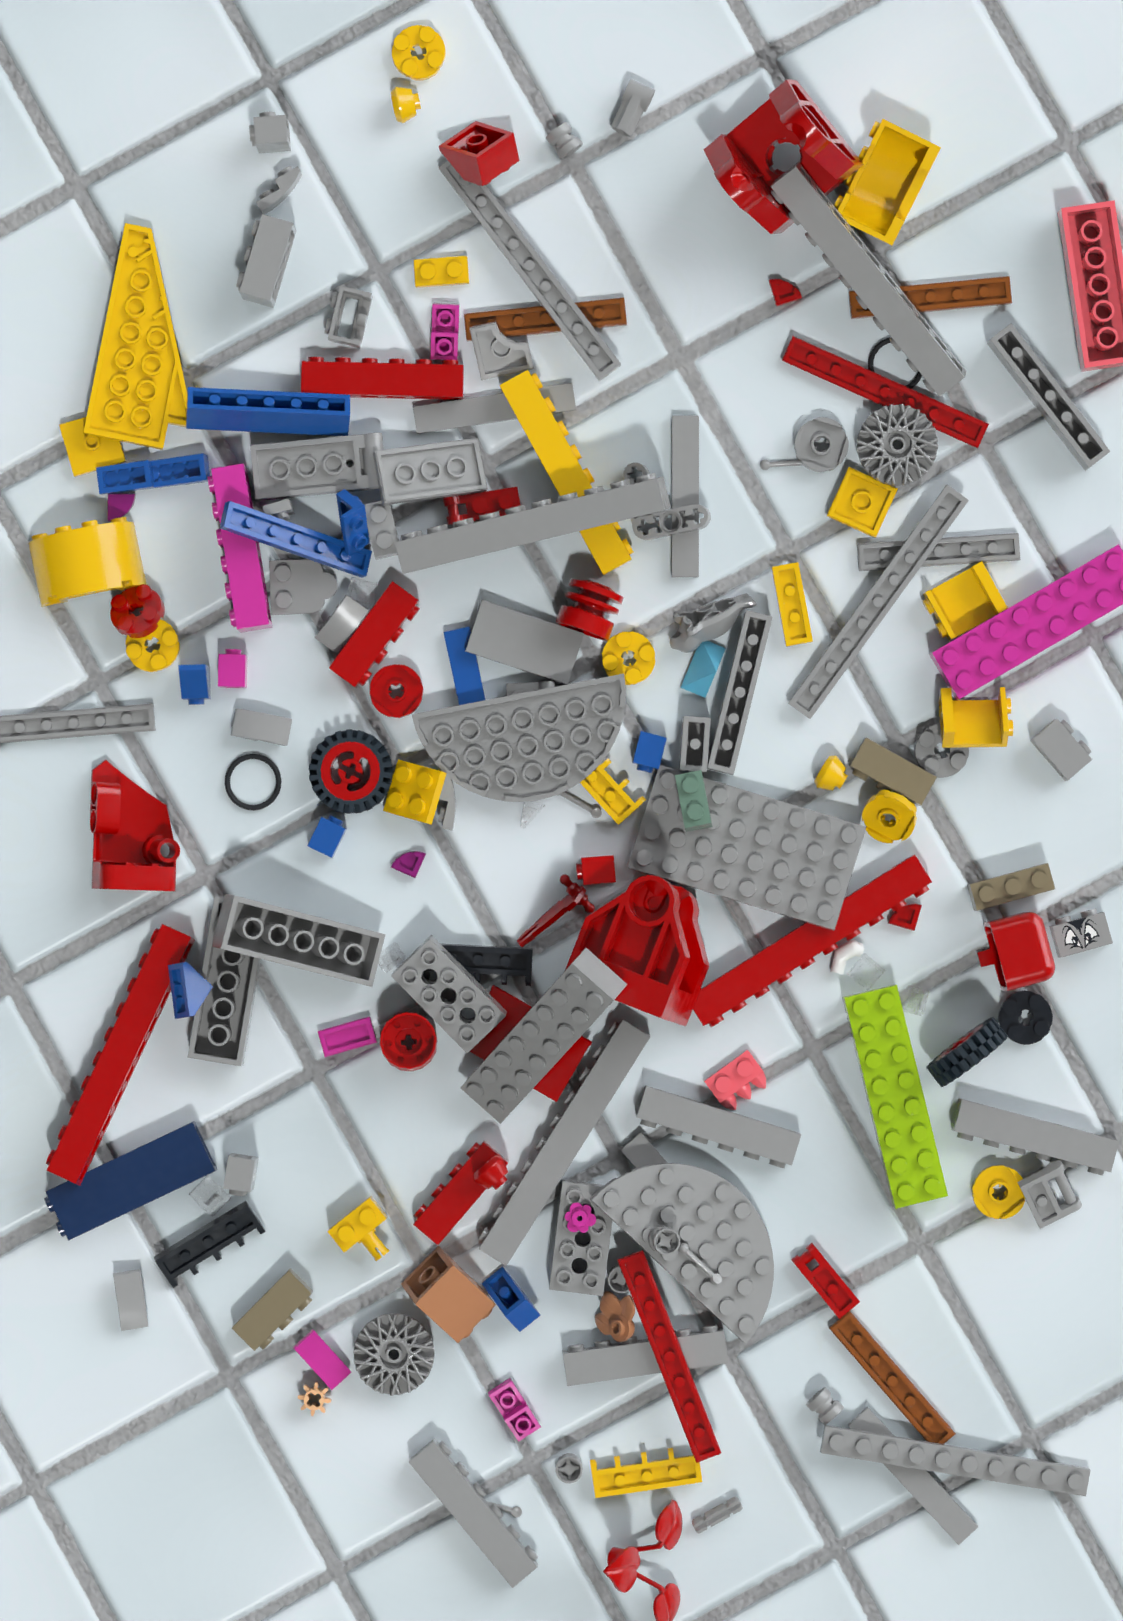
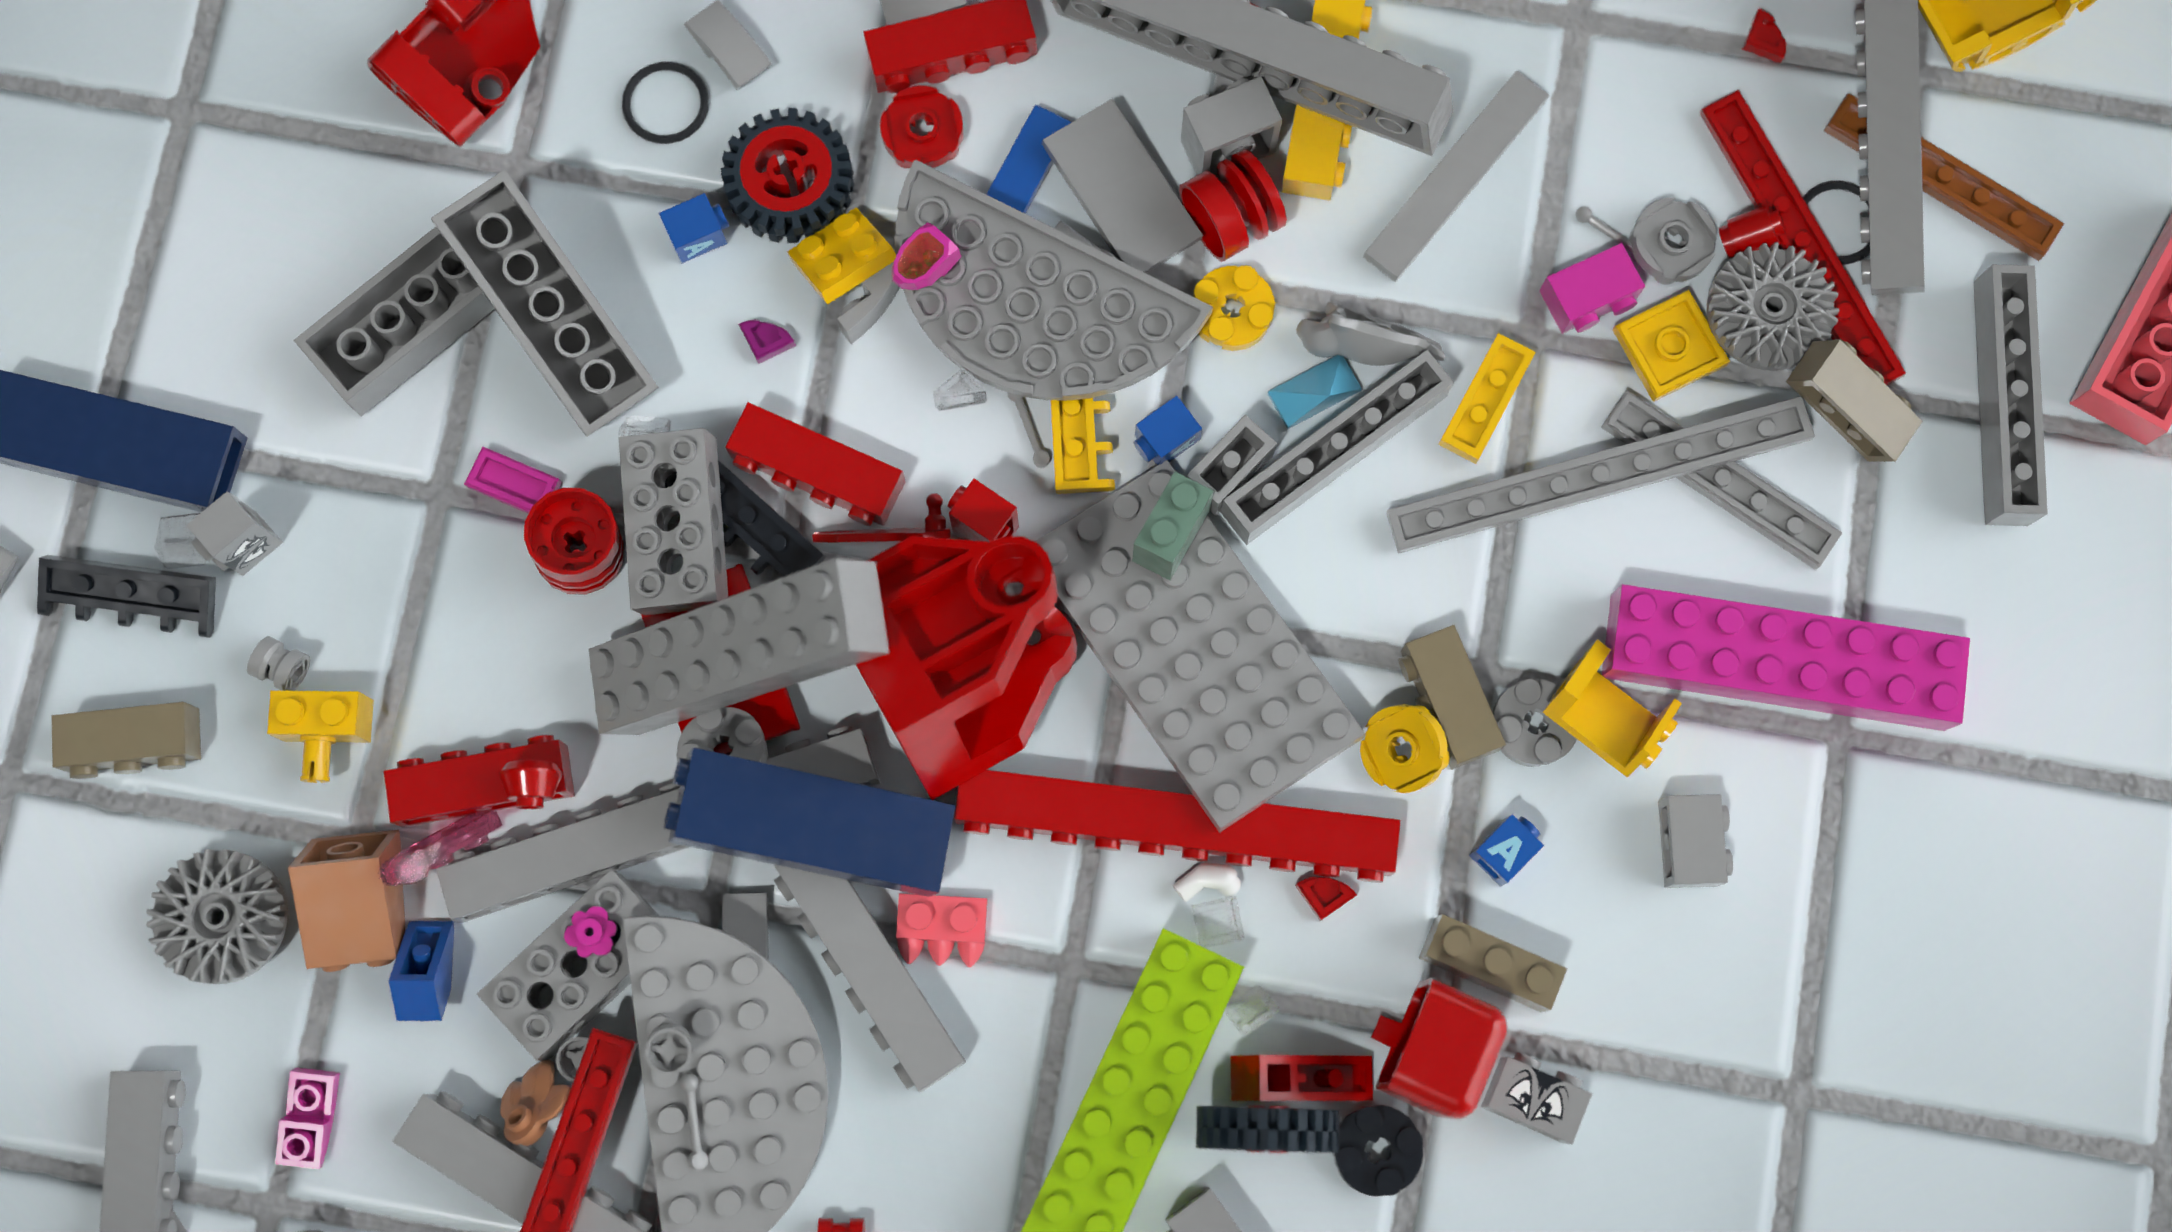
camera: 40 degrees right, 10 degrees down
(119, 1056) = (217, 280): red brick -> none
(187, 989) = (365, 258): blue slope -> none
(314, 1216) = (278, 664): none -> light grey wheel
(314, 1406) = (63, 890): light nougat gear -> none
(322, 1359) = (129, 851): dark pink slope -> none
(463, 766) = (924, 258): none -> rock
(473, 1237) = (437, 849): none -> clear pink hinge
(490, 907) = (815, 465): none -> red brick
(555, 570) = (1229, 123): none -> light grey brick
(580, 1091) = (721, 726): none -> light grey plate
(640, 1084) = (809, 822): none -> dark blue brick
(653, 533) = (1398, 160): light grey beam -> none
(800, 505) = (1592, 289): none -> dark pink piece
(831, 774) = (1371, 638): yellow cone -> none
(857, 411) = (1751, 230): none -> red brick
(963, 1013) = (1301, 1078): none -> red slope
(964, 601) = (1709, 558): yellow panel -> none
(974, 463) = (1854, 400): none -> brick
(976, 824) = (1508, 849): none -> blue brick

